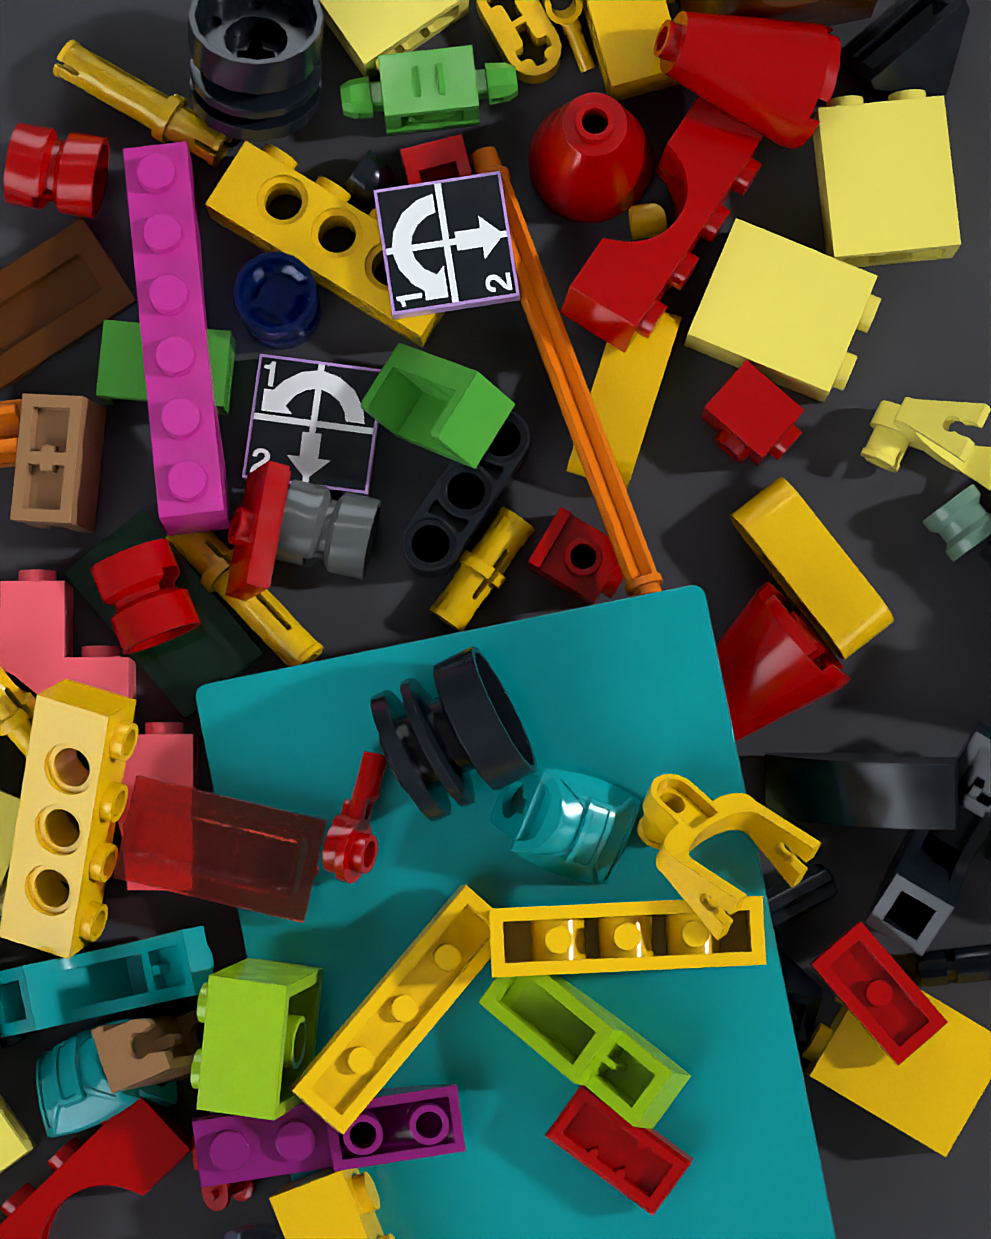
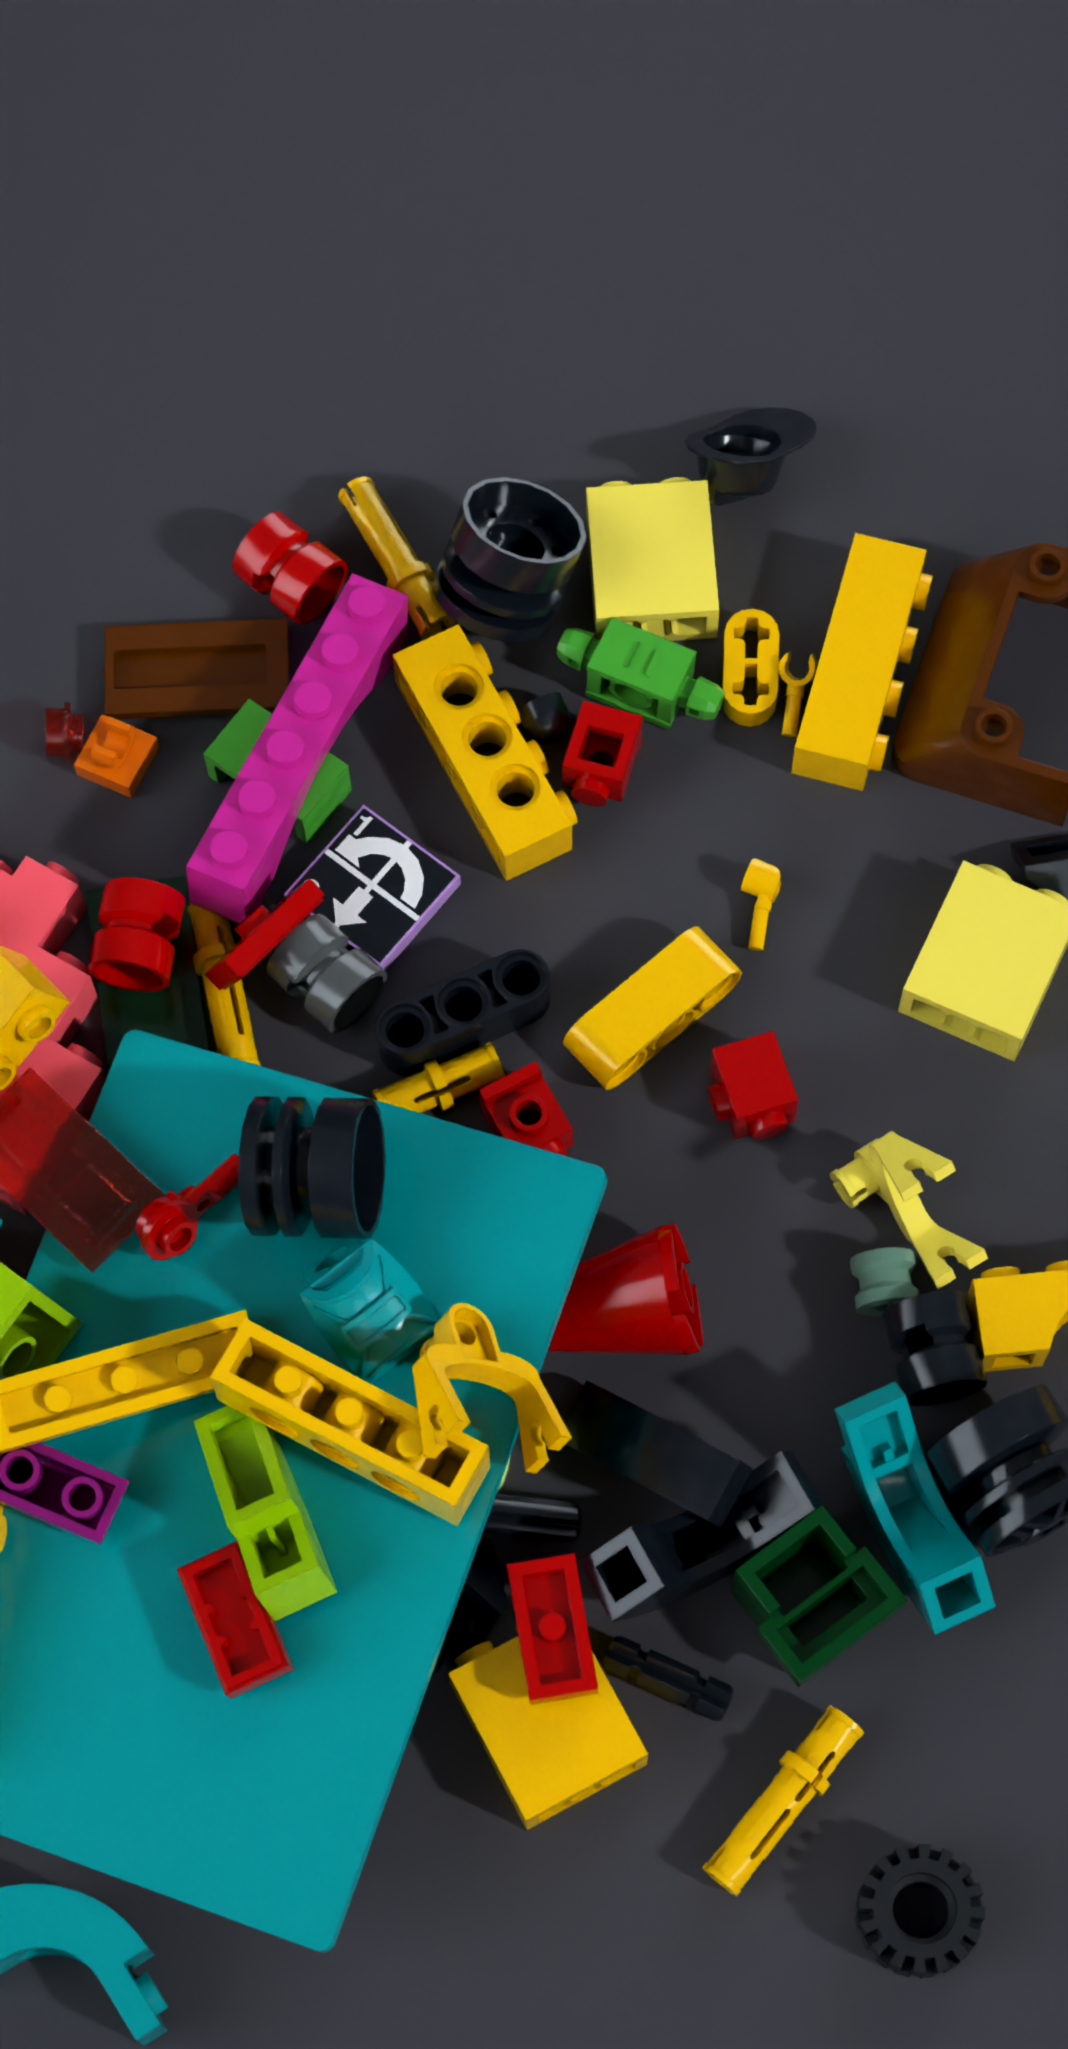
camera: 30 degrees right, 15 degrees down
(58, 462) = (139, 796): medium nougat hinge -> none
(277, 300) = (404, 767): clear blue wheel -> none
(437, 405) = (482, 918): bright green panel -> none
(446, 245) = (572, 793): tile -> none
(574, 395) = (609, 950): orange piece -> none
(590, 159) = (746, 798): red cone -> none
(625, 280) = (704, 907): red arch -> none
(754, 68) = (922, 792): red cone -> none
(783, 311) = (833, 1015): light yellow brick -> none
(812, 568) = (726, 1245): yellow beam -> none

